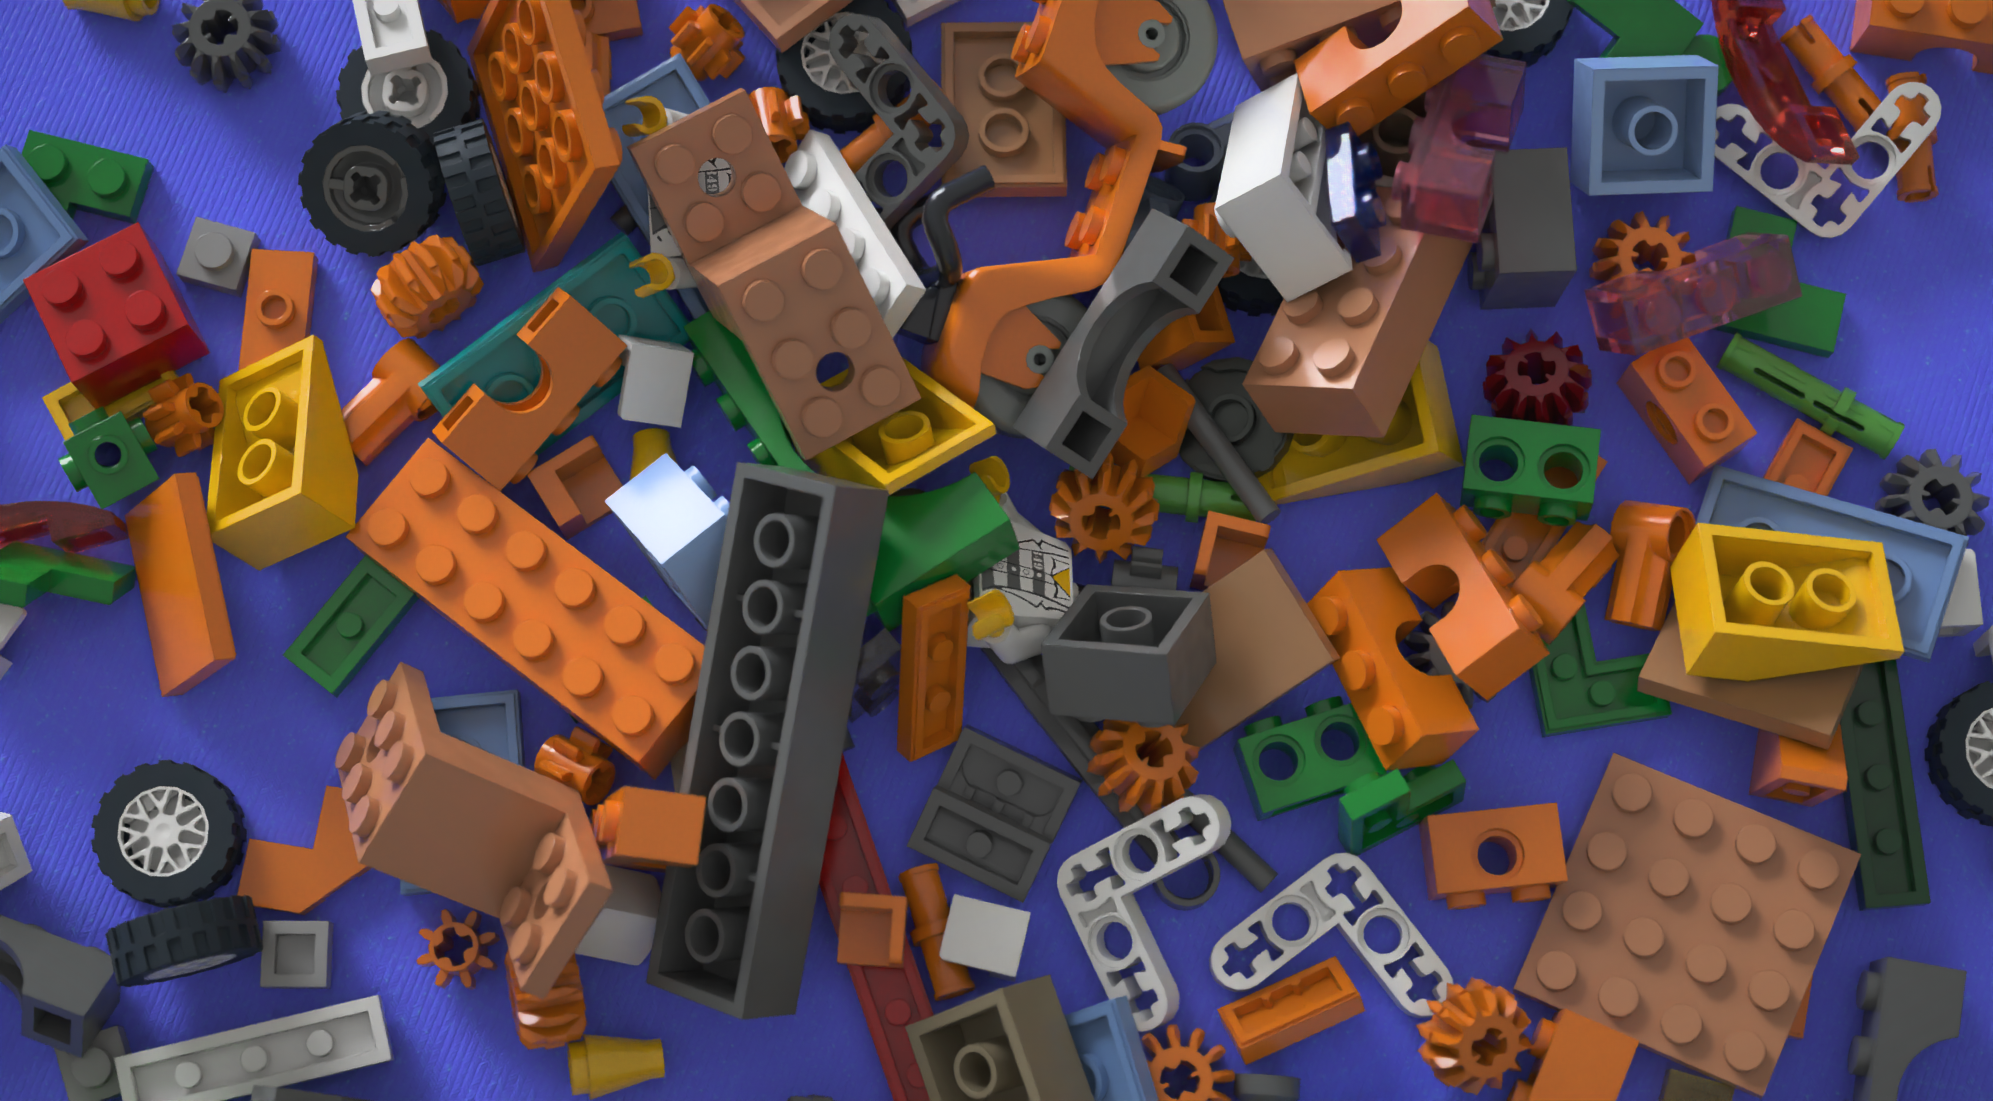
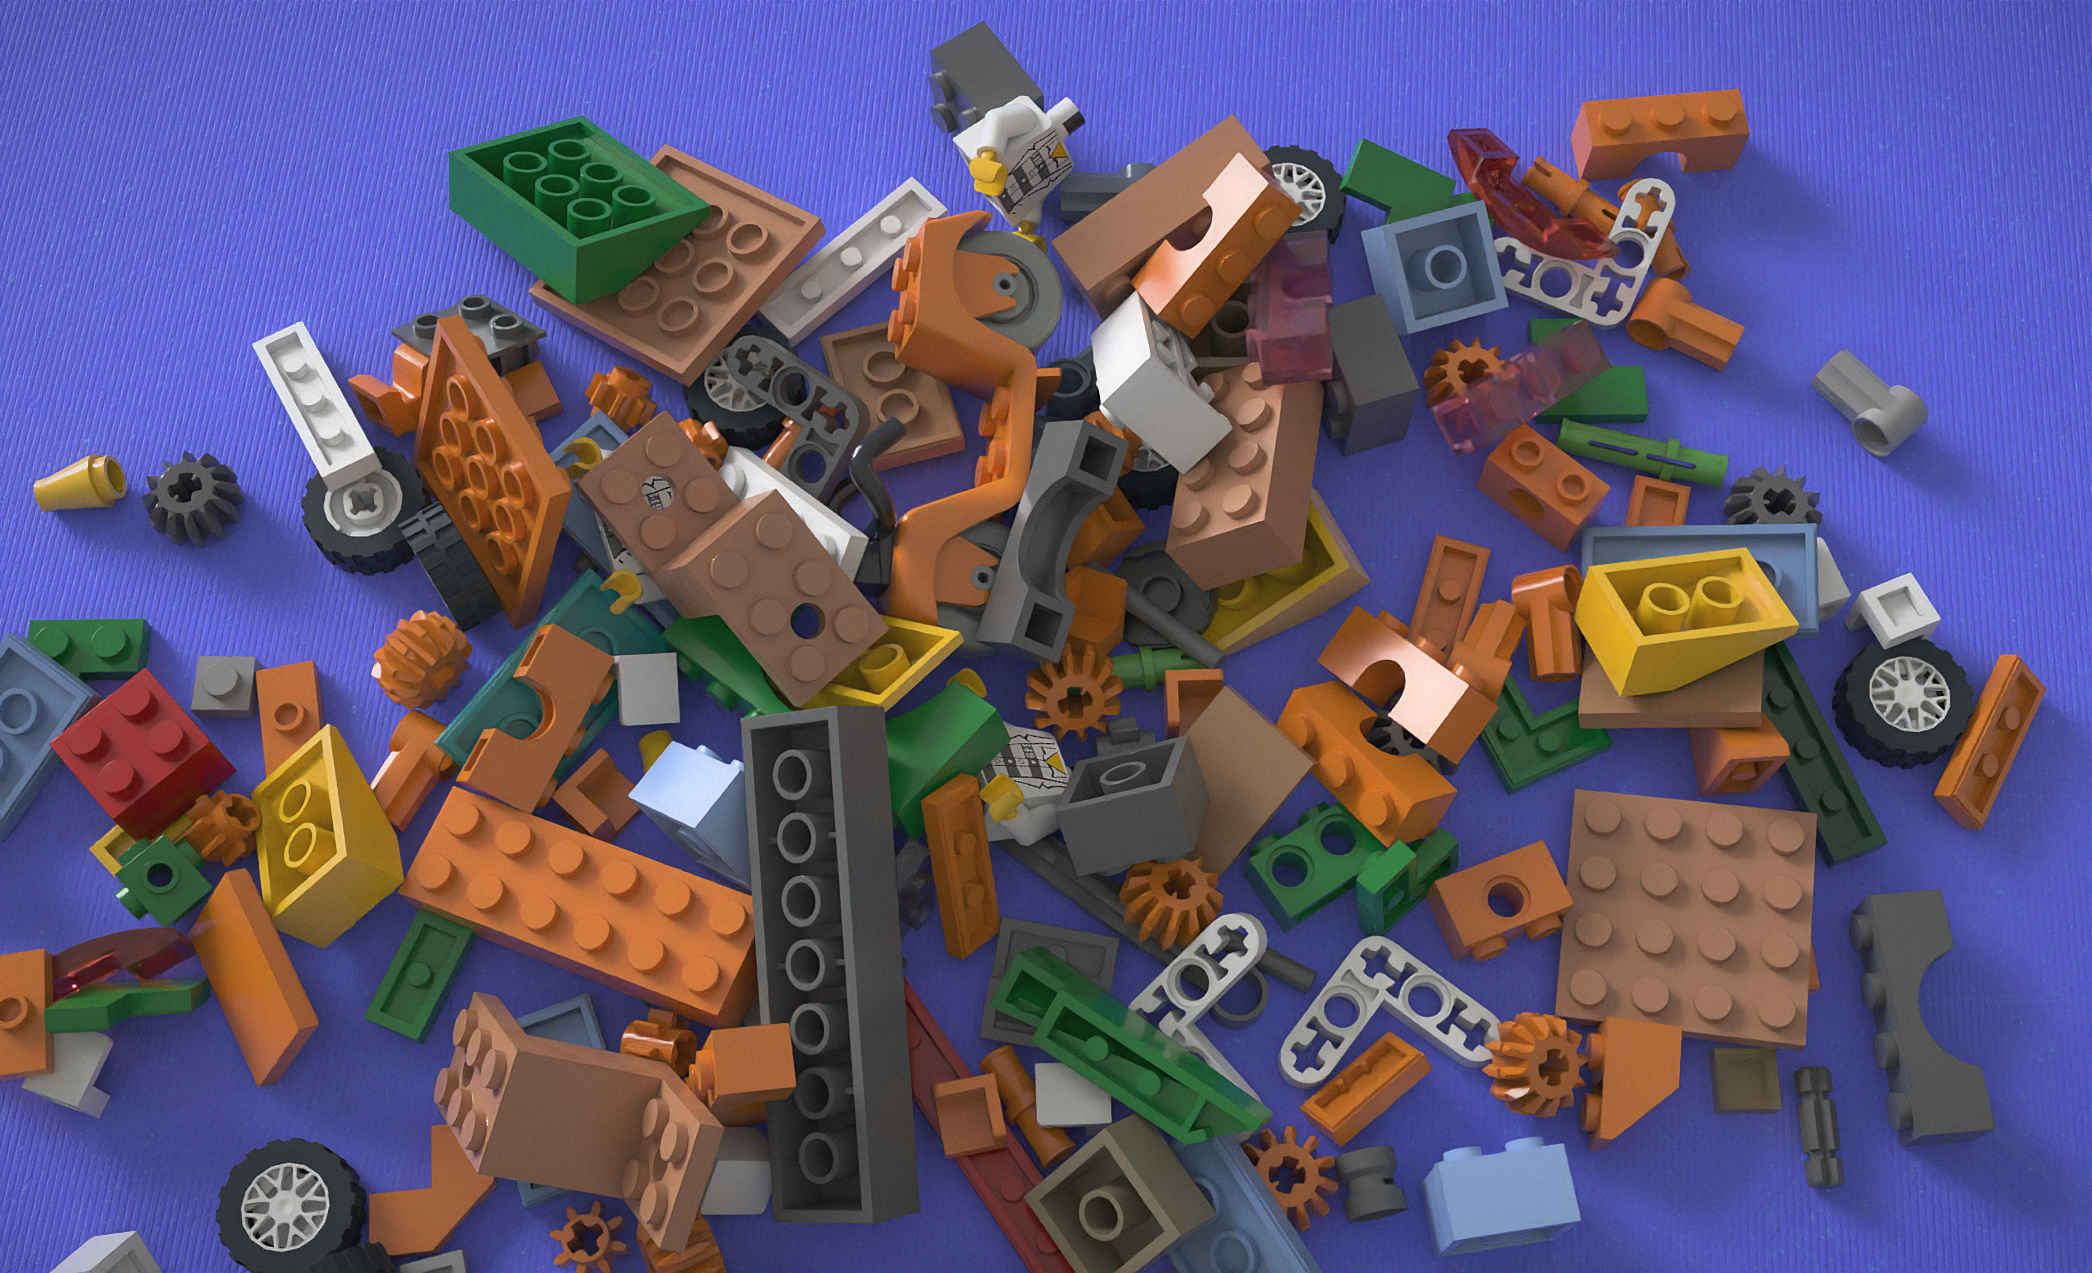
camera: 15 degrees left, 10 degrees down
(372, 183) = (352, 584): black wheel -> none
(1047, 907) = (1123, 1051): none -> green wedge
(1353, 198) = (1218, 375): clear blue plate -> none
(1530, 451) = (1424, 554): green brick -> none
(1556, 369) = (1412, 499): dark red gear -> none
(1895, 248) = (1671, 319): none -> orange piece

